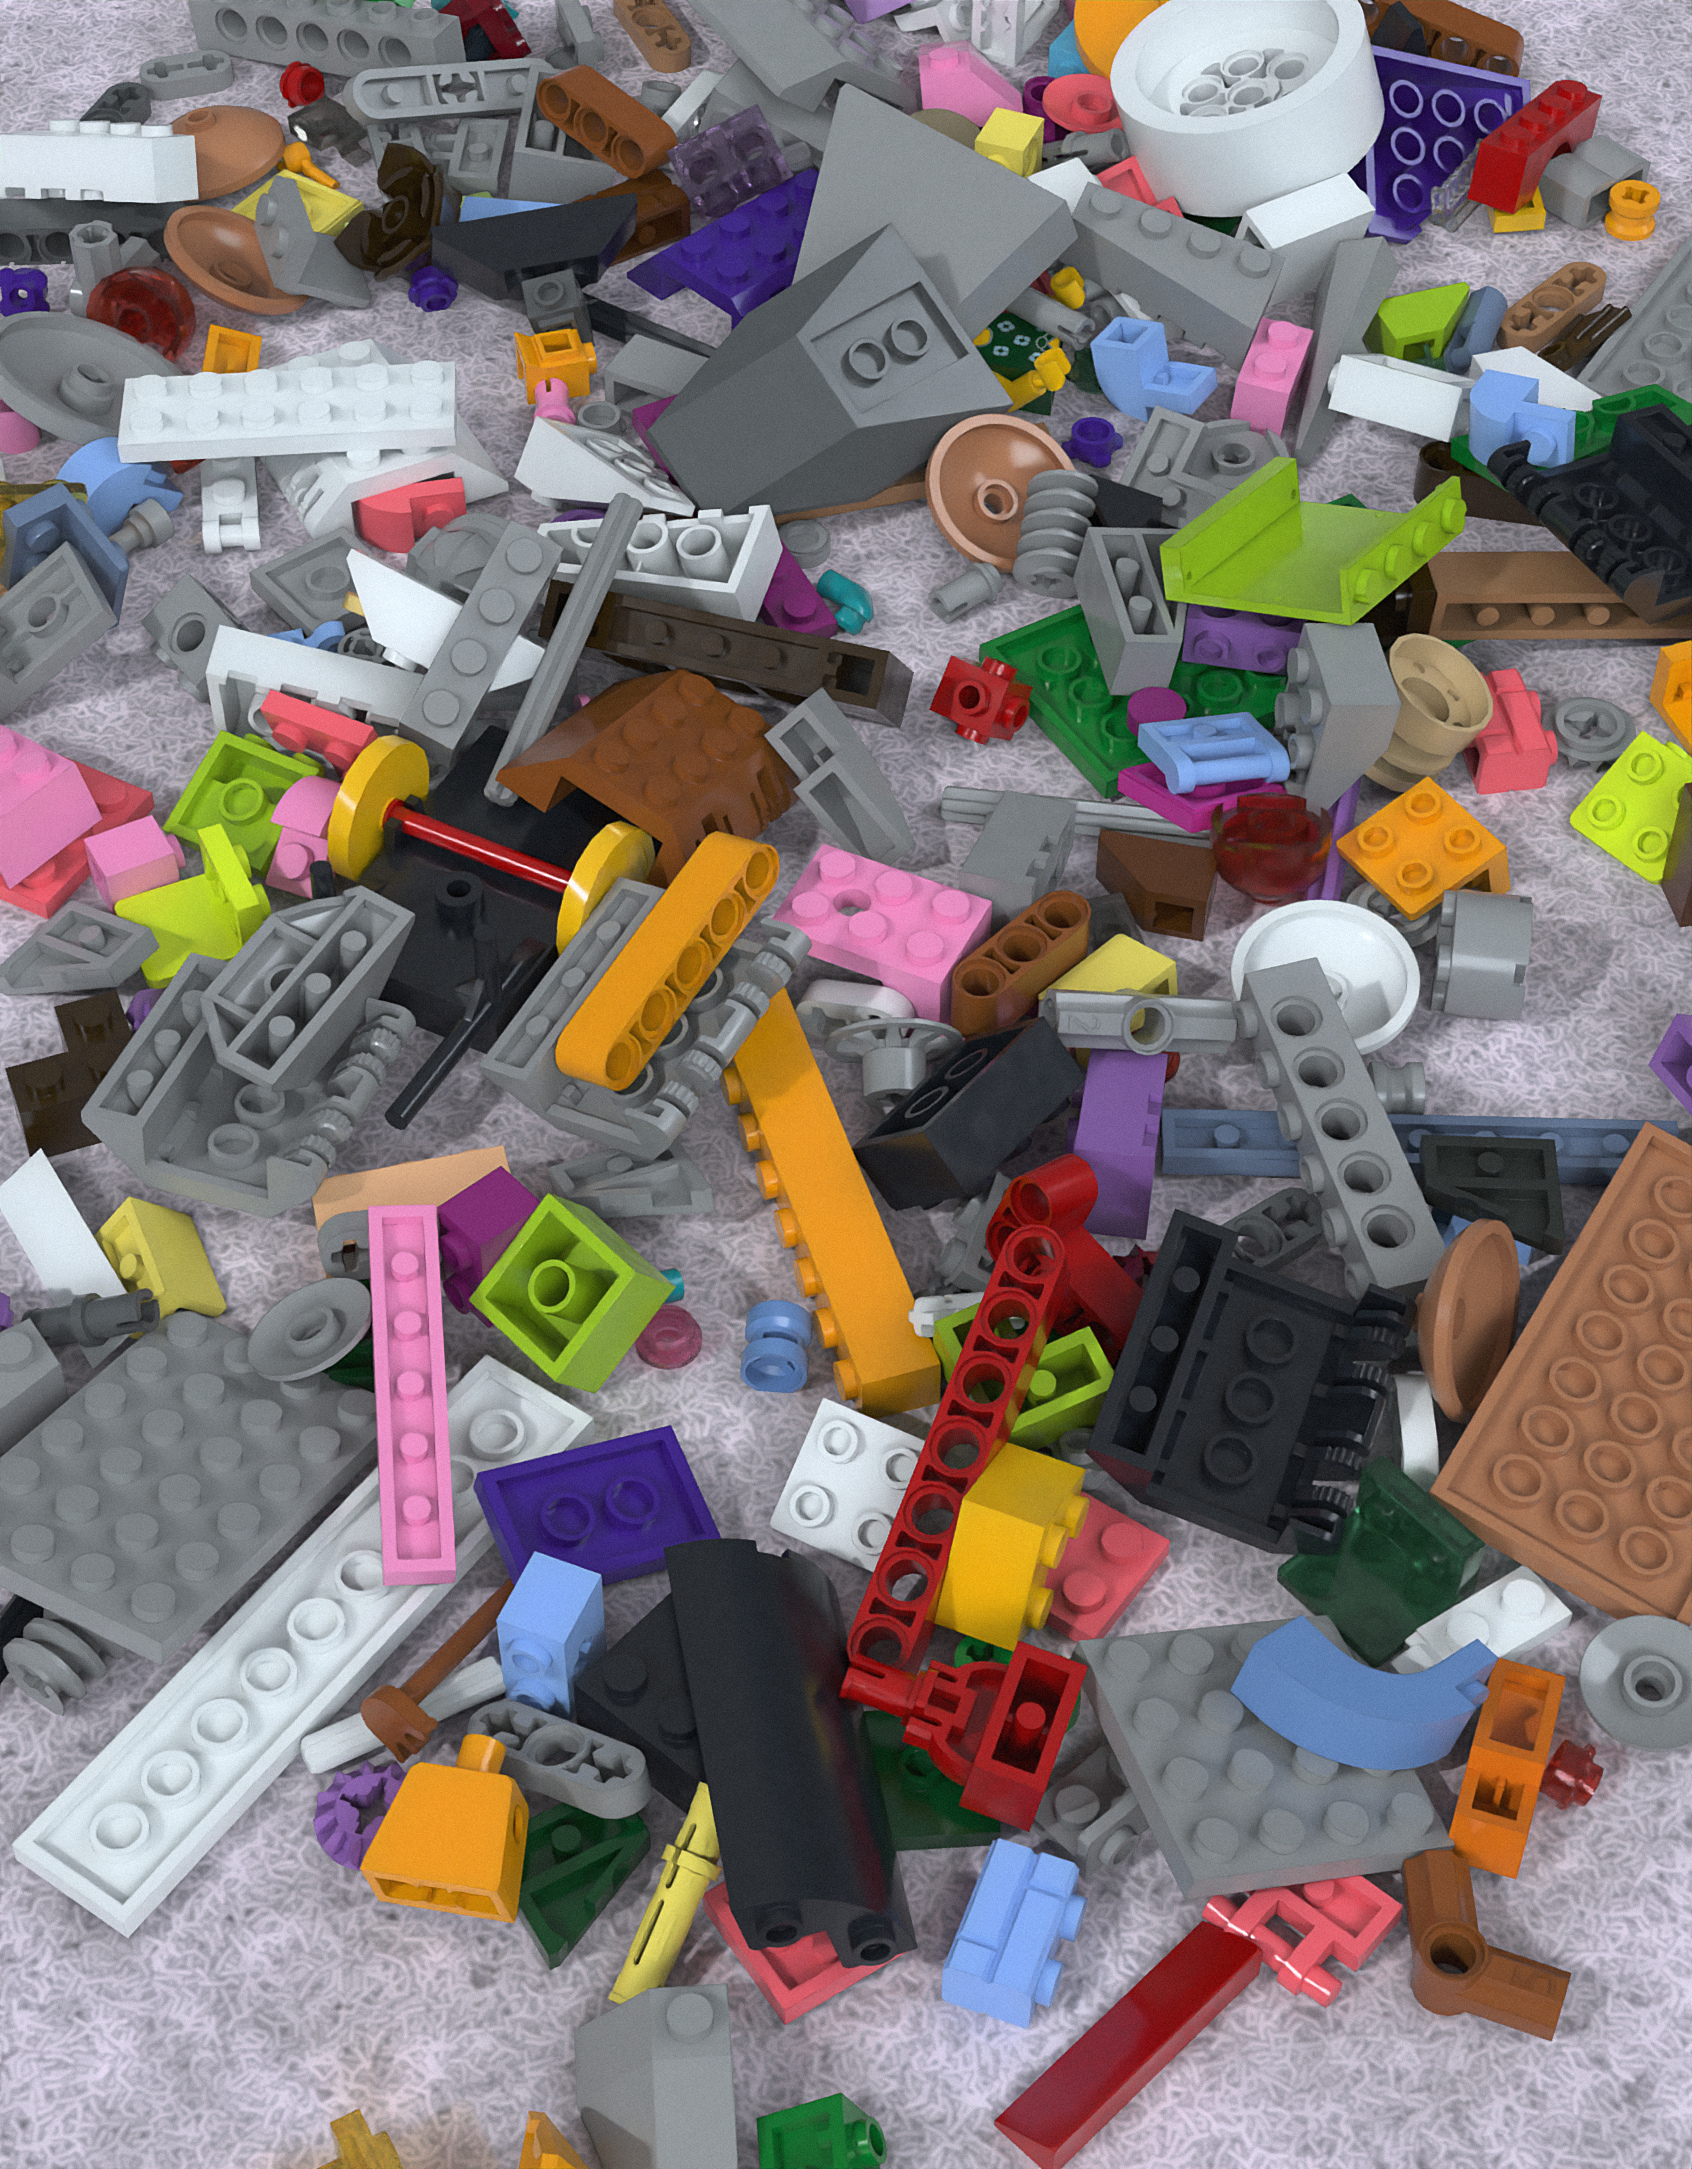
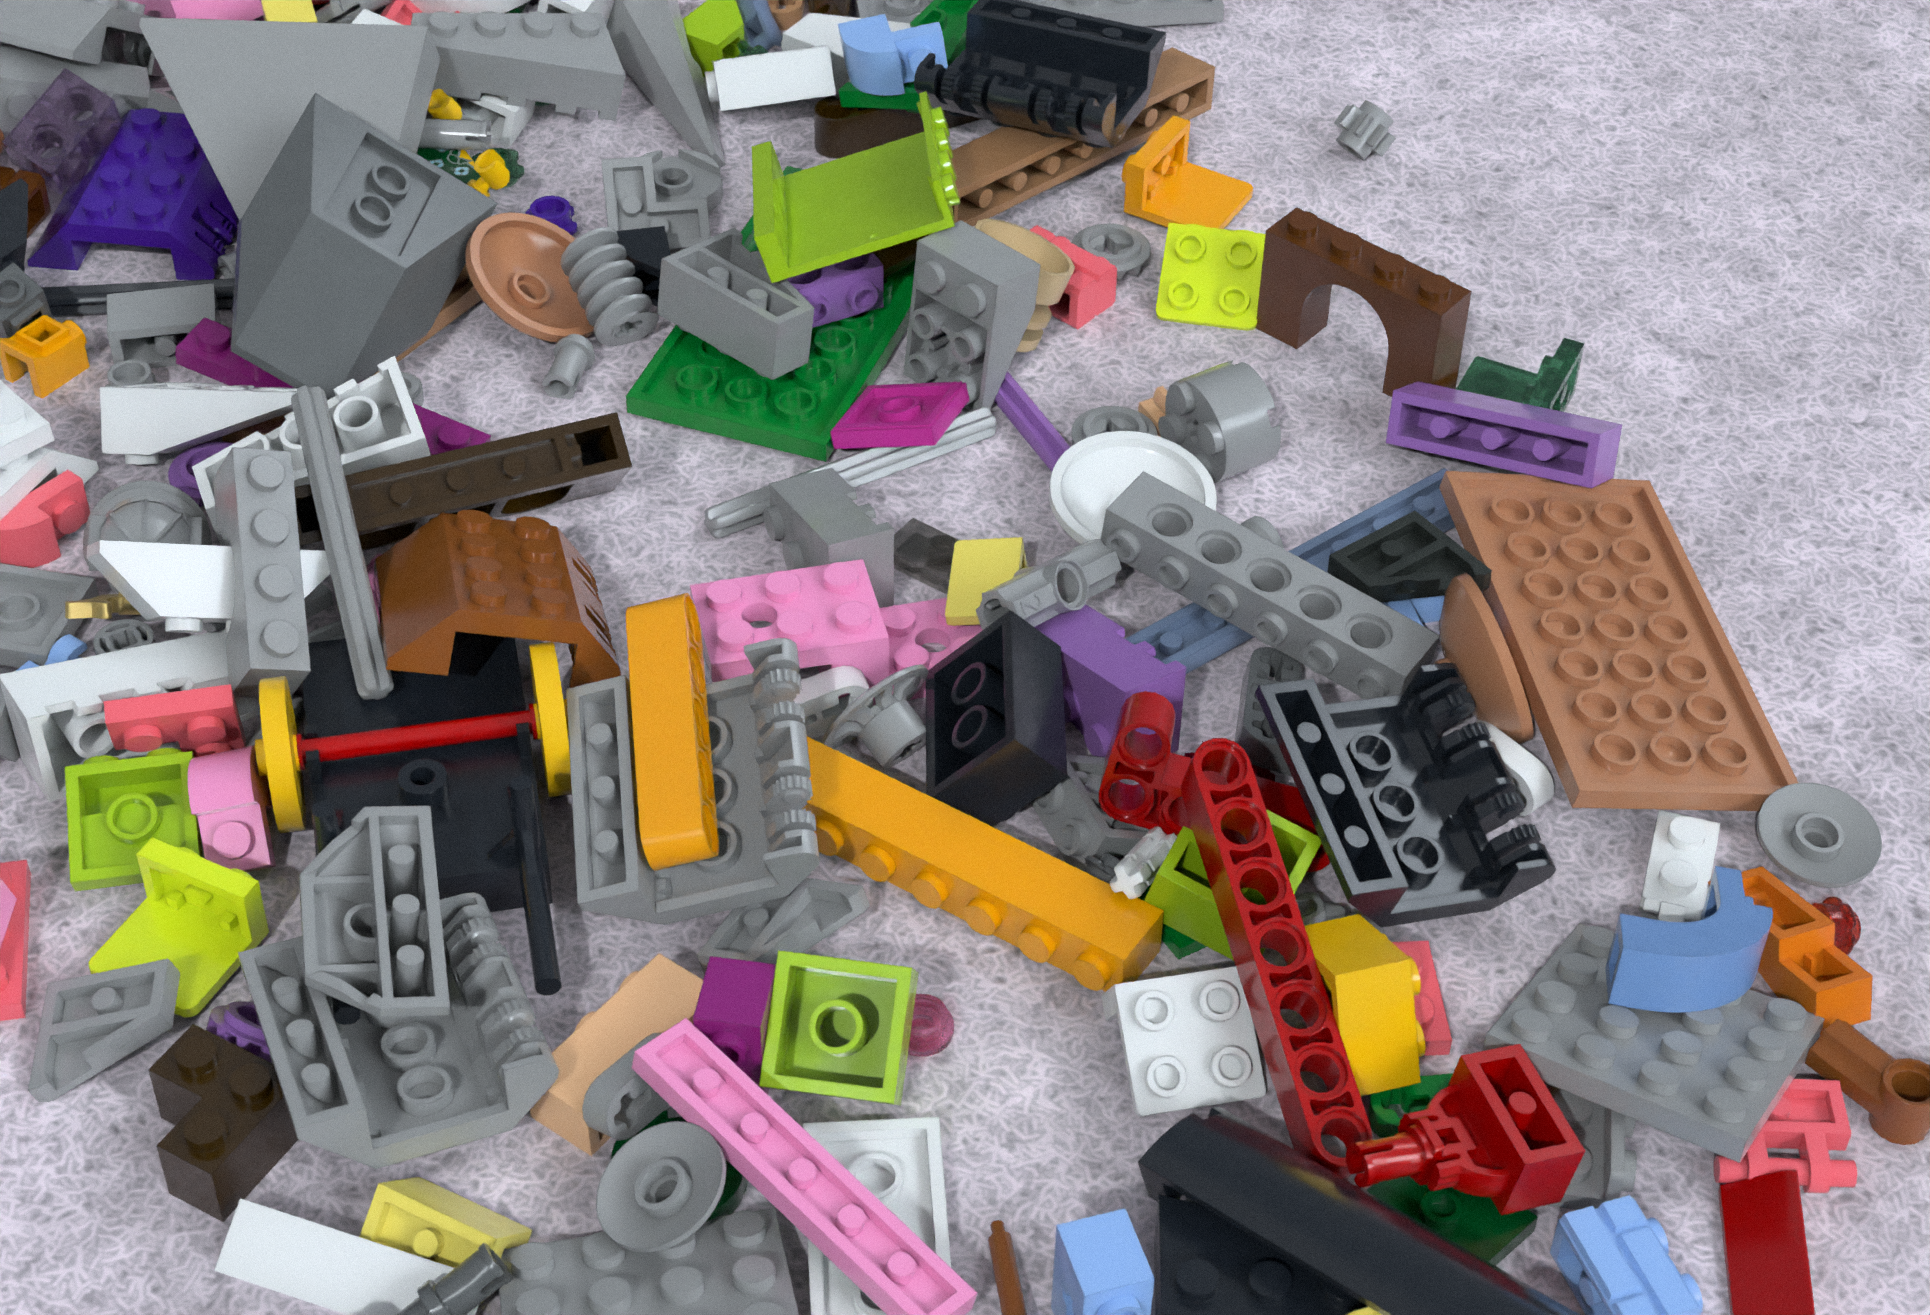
camera: 40 degrees left, 5 degrees down
(133, 860) = (73, 922): bright pink brick -> none
(555, 403) = (76, 389): bright pink pin -> none
(597, 1506) = (1018, 1181): dark purple plate -> none
(776, 1348) = (1020, 984): medium blue wheel -> none
(841, 780) = (637, 537): light grey slope -> none
(852, 598) = (480, 413): teal arm -> none
(982, 699) = (653, 428): red brick -> none
(1019, 962) = (917, 595): dark orange beam -> none
(1137, 371) = (546, 155): light blue brick -> none
(1154, 705) = (817, 378): magenta tile -> none
(1162, 881) = (941, 491): reddish brown slope -> none
(1213, 751) = (892, 380): light blue plate -> none
(1270, 845) = (1000, 426): clear red cylinder -> none
(1271, 376) = (649, 112): bright pink brick -> none
(1394, 1566) = (1597, 855): clear green bracket -> none
(1425, 847) = (1102, 375): light orange bracket -> none

